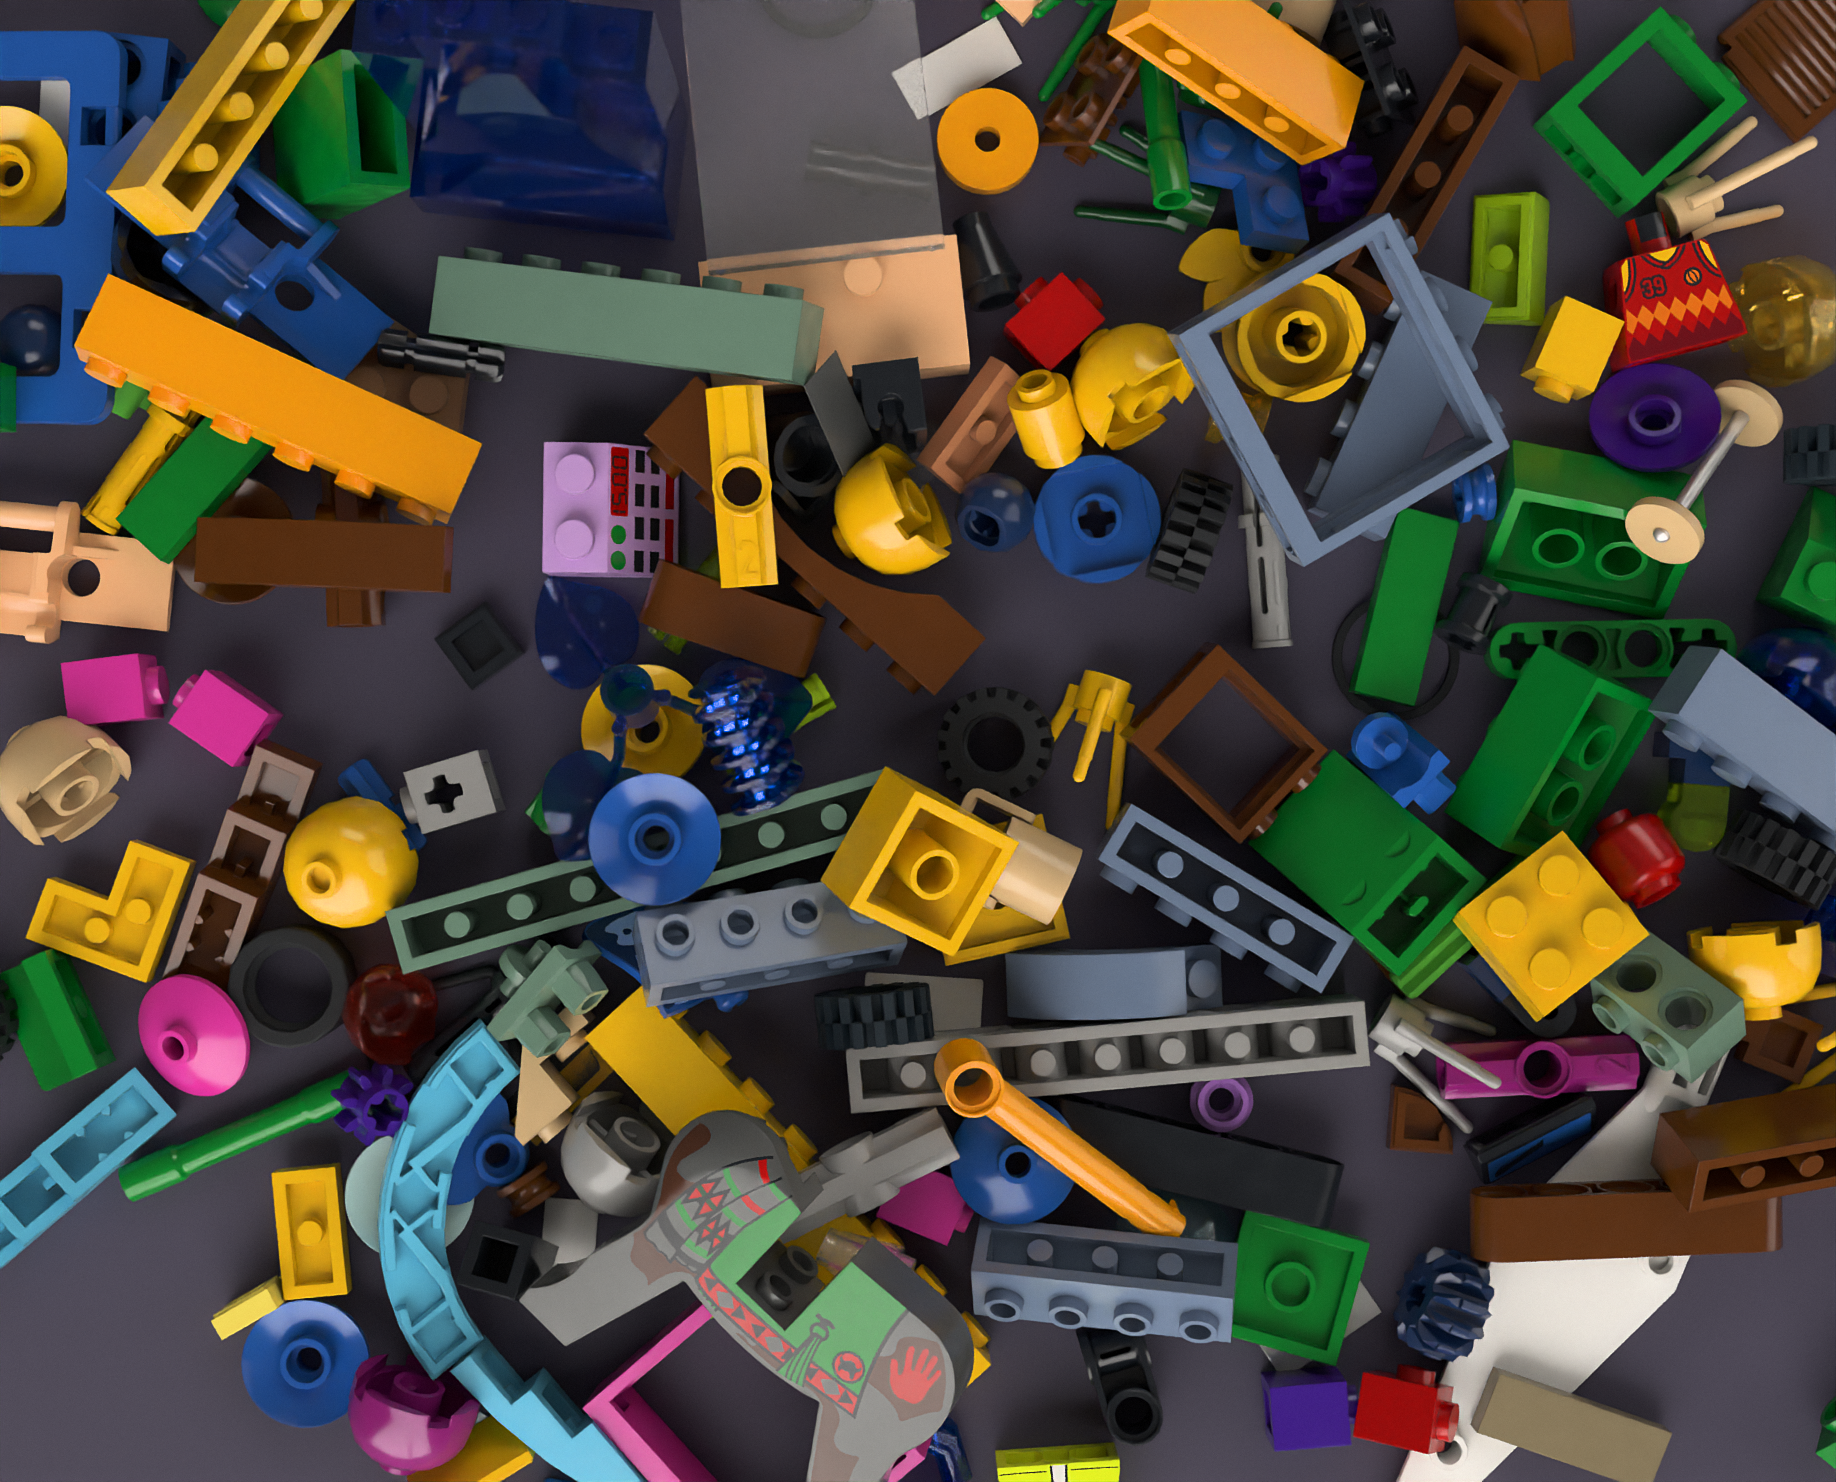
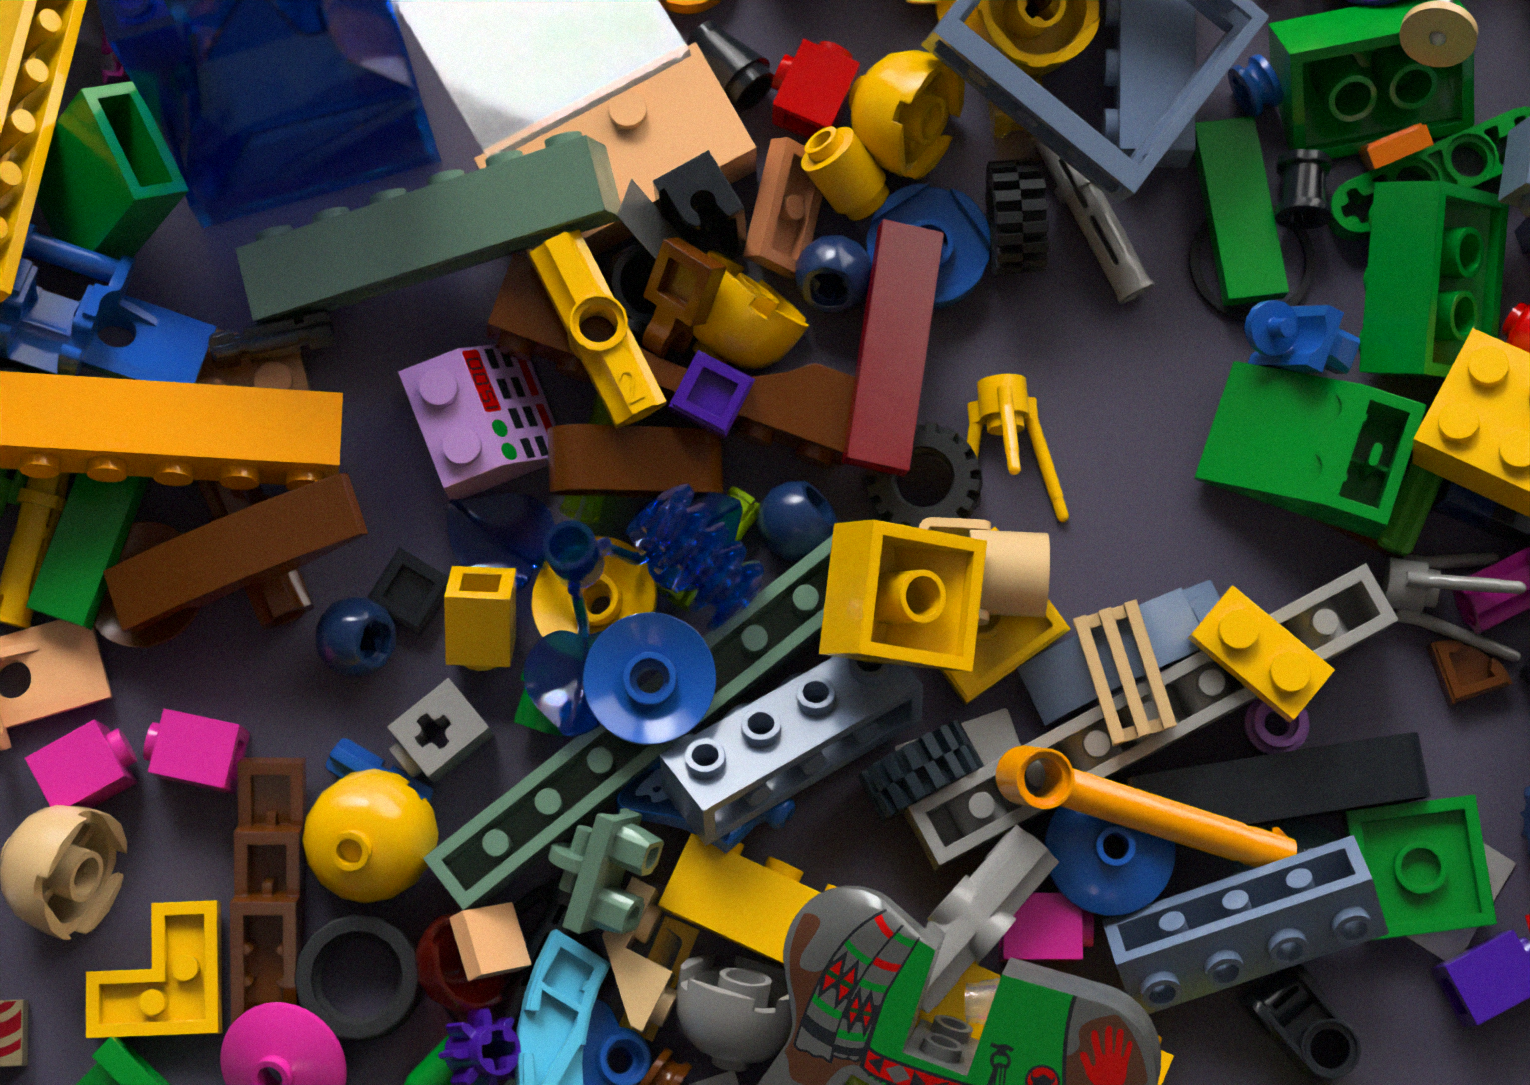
camera: 25 degrees left, 10 degrees down
(410, 672) = (355, 637): none -> dark blue piece
(419, 1007) = (490, 941): none -> light nougat tile
(531, 702) = (480, 617): none -> yellow brick
(826, 588) = (711, 394): none -> dark purple tile
(839, 479) = (684, 290): none -> reddish brown plate
(860, 733) = (795, 520): none -> dark blue piece
(1017, 611) = (893, 348): none -> dark red tile
(1088, 1068) = (1108, 618): none -> tan tile
(1179, 696) = (1206, 395): reddish brown window -> none
(1223, 897) = (1193, 530): sand blue brick -> none
(1228, 1046) = (1261, 654): none -> yellow plate
(1577, 611) = (1395, 146): none -> orange tile

